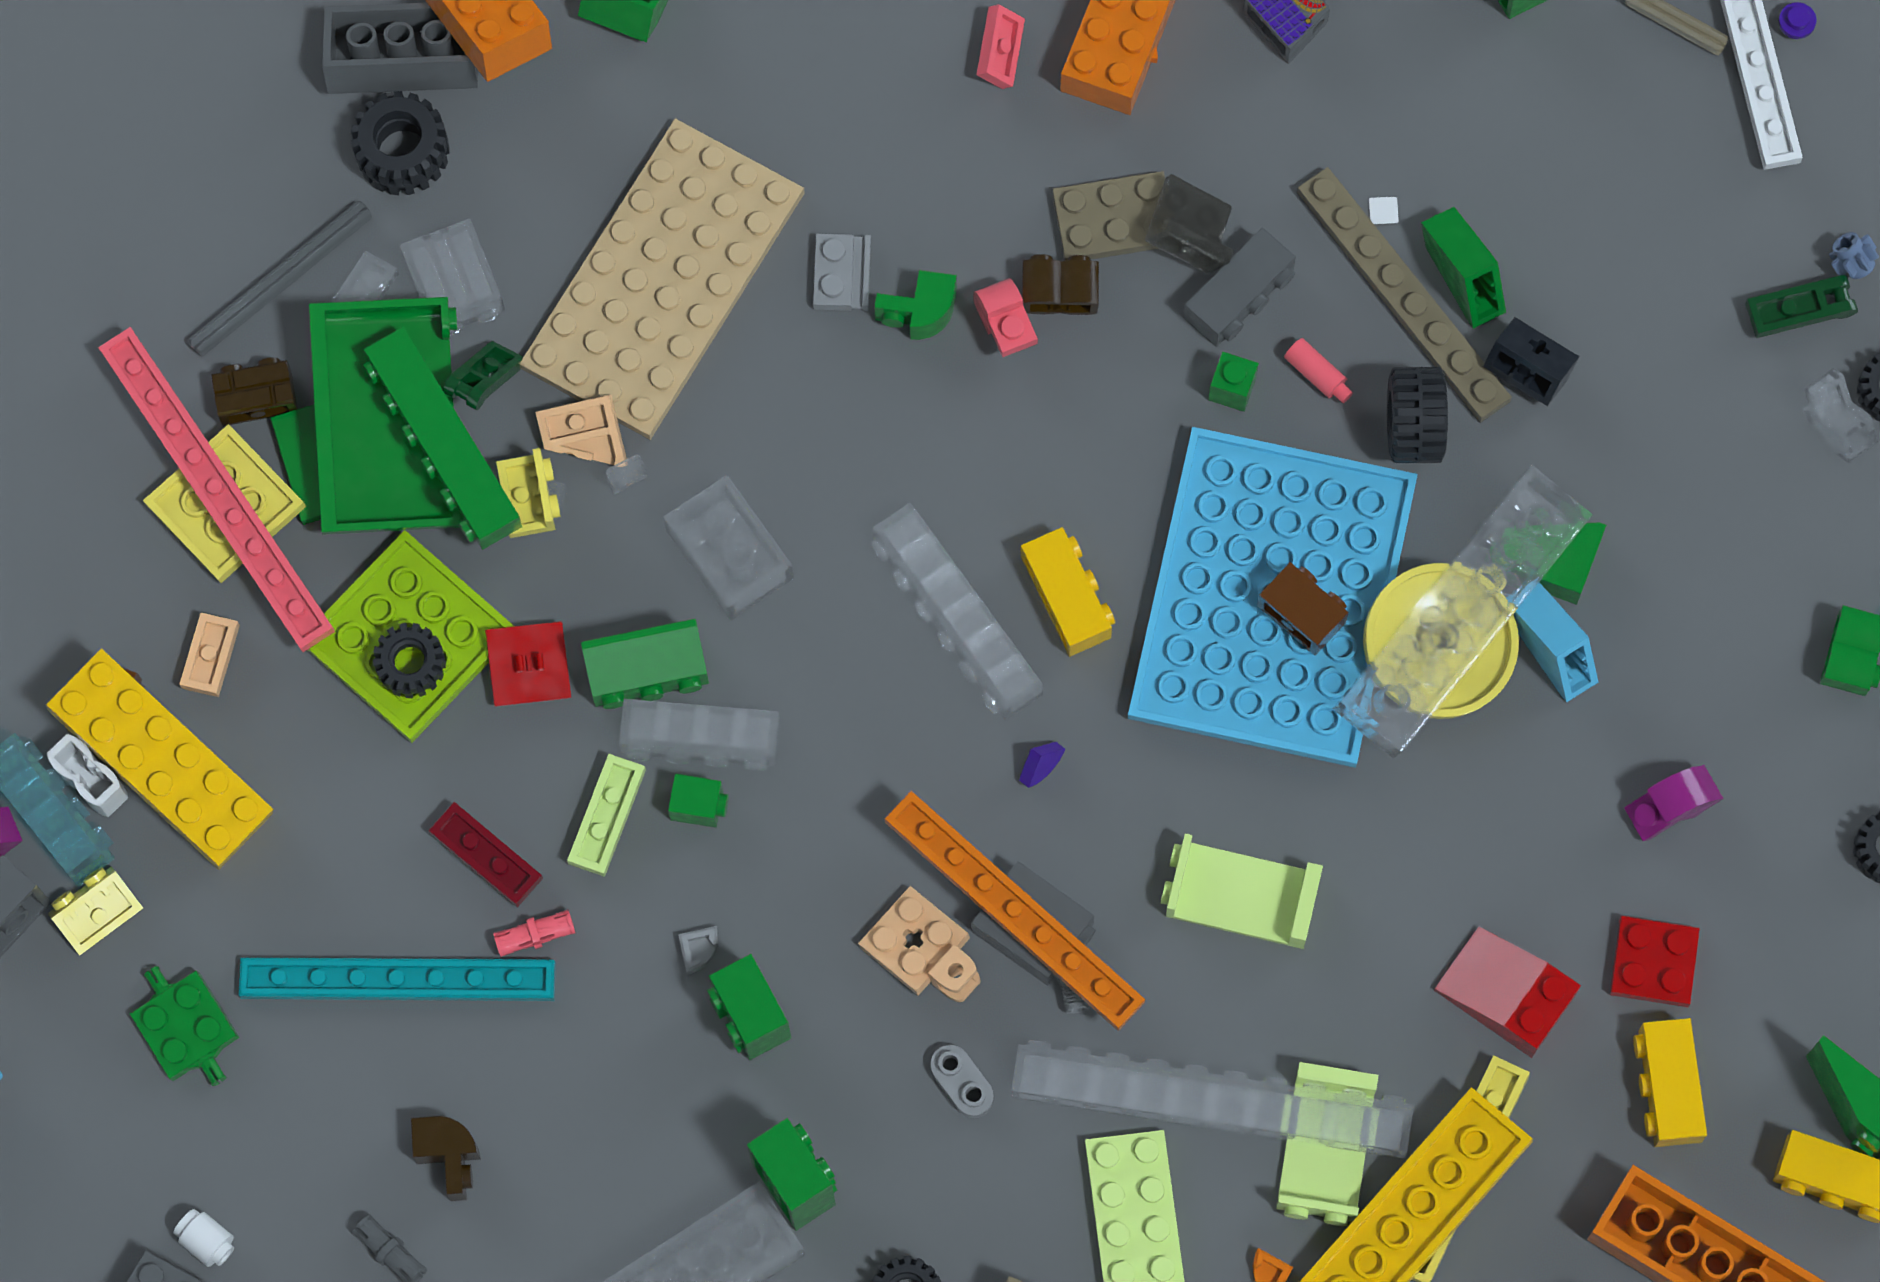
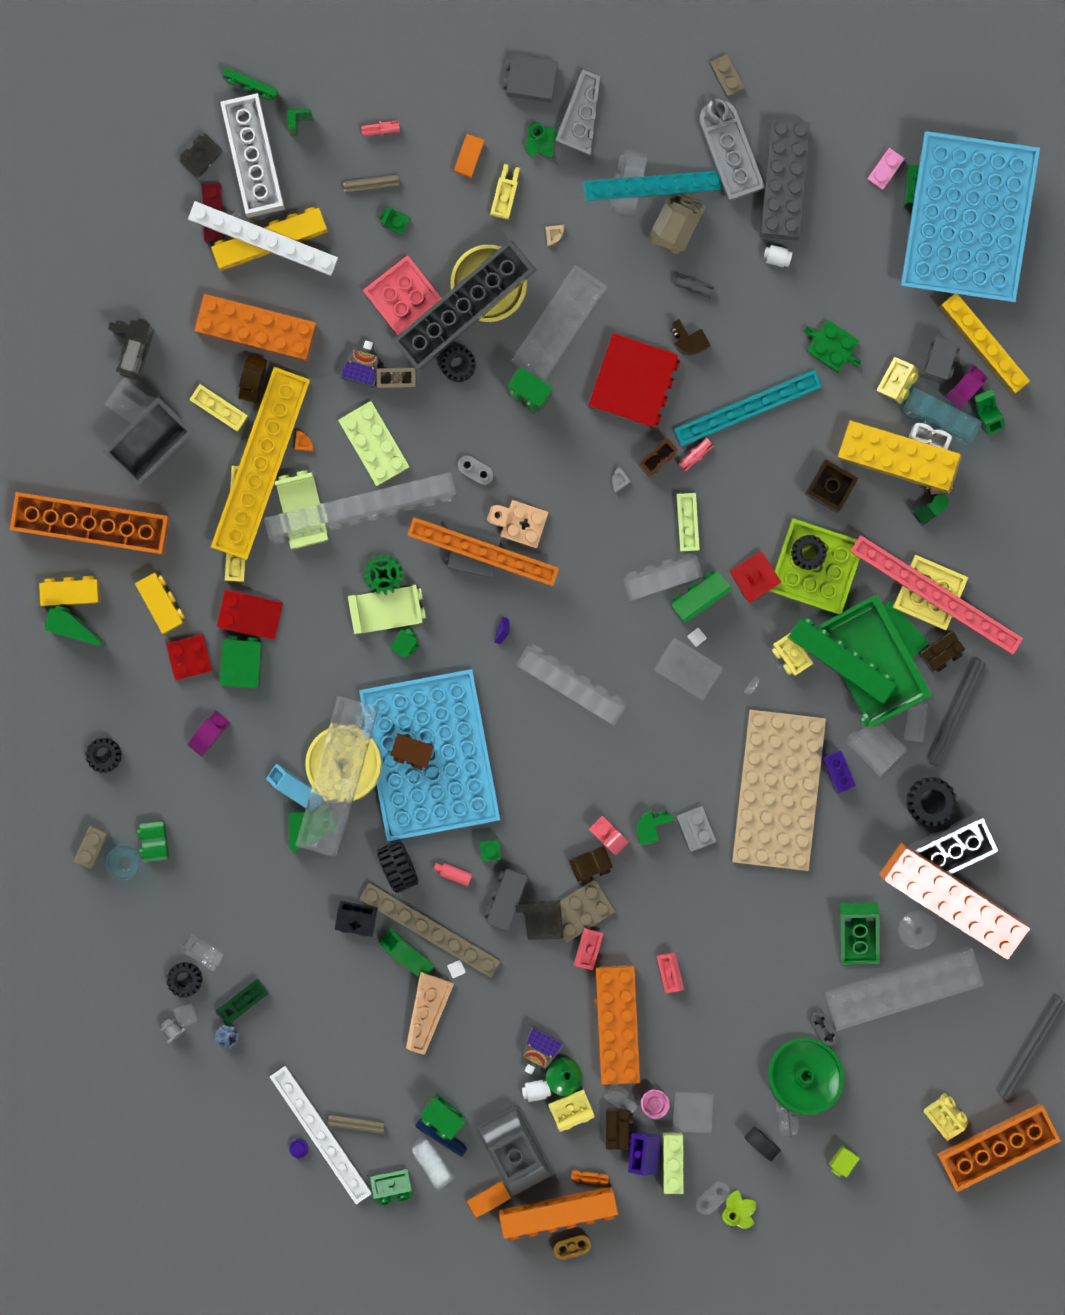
camera: 155 degrees right, 15 degrees up
(150, 648) = (934, 508): none -> leg
(209, 654) = (903, 519): light nougat plate -> none
(311, 764) = (831, 486): none -> dark brown brick
(483, 374) = (838, 702): dark green plate -> none
(485, 854) = (734, 480): dark red plate -> none
(540, 261) = (838, 771): none -> dark purple brick
(584, 430) = (780, 698): light nougat wing -> none
(587, 1117) = (634, 380): none -> red panel
(597, 954) = (653, 461): none -> reddish brown brick
(686, 605) = (697, 637): none -> white sticker
(697, 801) = (649, 545): green brick -> none
(750, 1007) = (582, 458): green brick -> none
(1067, 591) = (524, 716): yellow brick -> none
(1129, 143) = (588, 949): none -> coral plate
(1233, 813) = (405, 643): none -> green brick
(1234, 948) = (389, 567): none -> green gear
(1464, 157) = (428, 1007): none -> light nougat wing
(1559, 906) = (241, 662): none -> green brick

